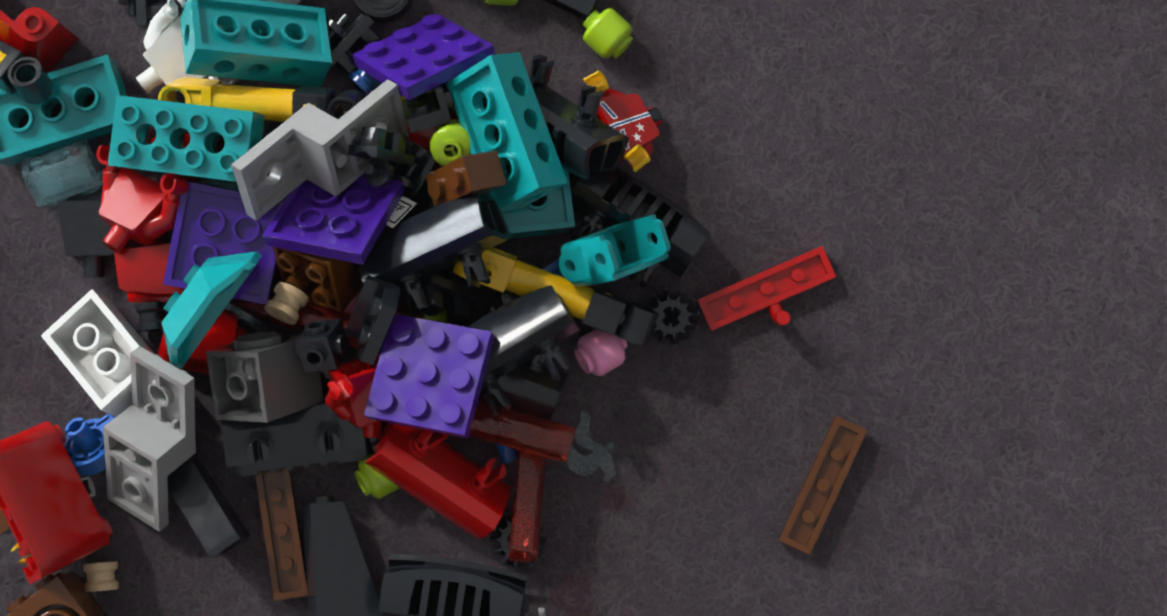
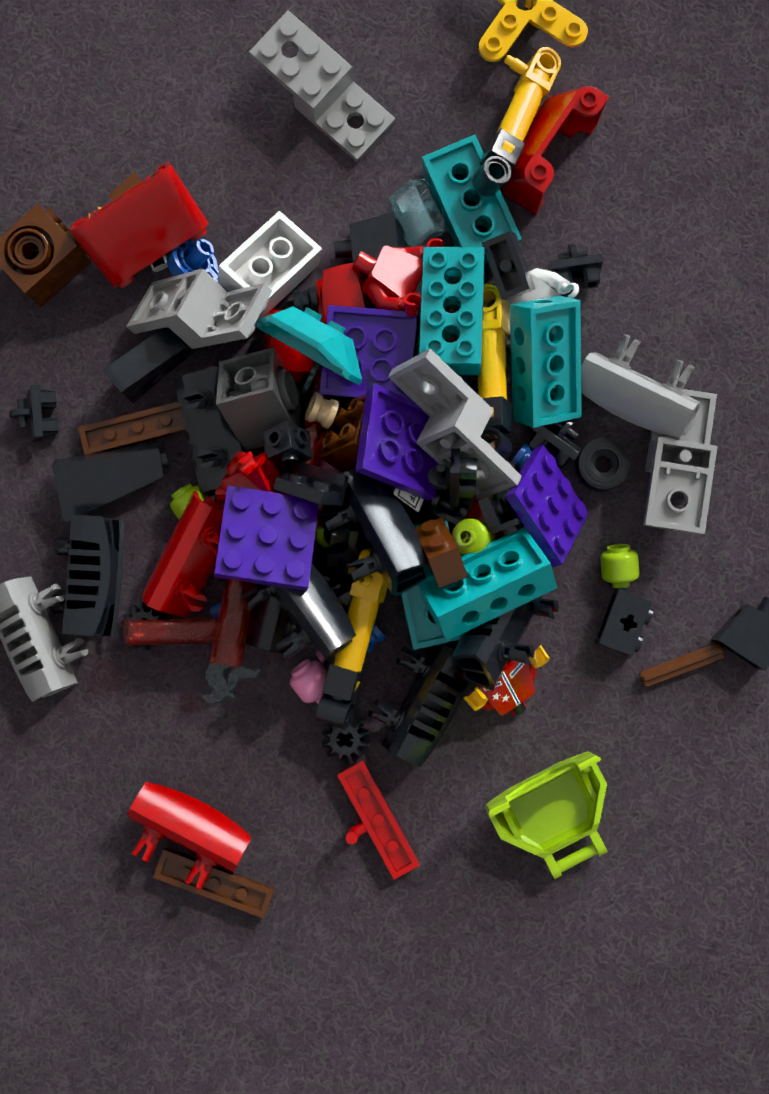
camera: 90 degrees right, 0 degrees up
(100, 576) = (87, 283): tan wheel -> none
(139, 71) = (508, 265): none -> black brick
(600, 259) = (382, 677): teal piece -> none
(607, 33) = (585, 661): lime head -> none
(755, 503) = (189, 824): none -> red piece
(774, 85) = (554, 811): none -> lime piece

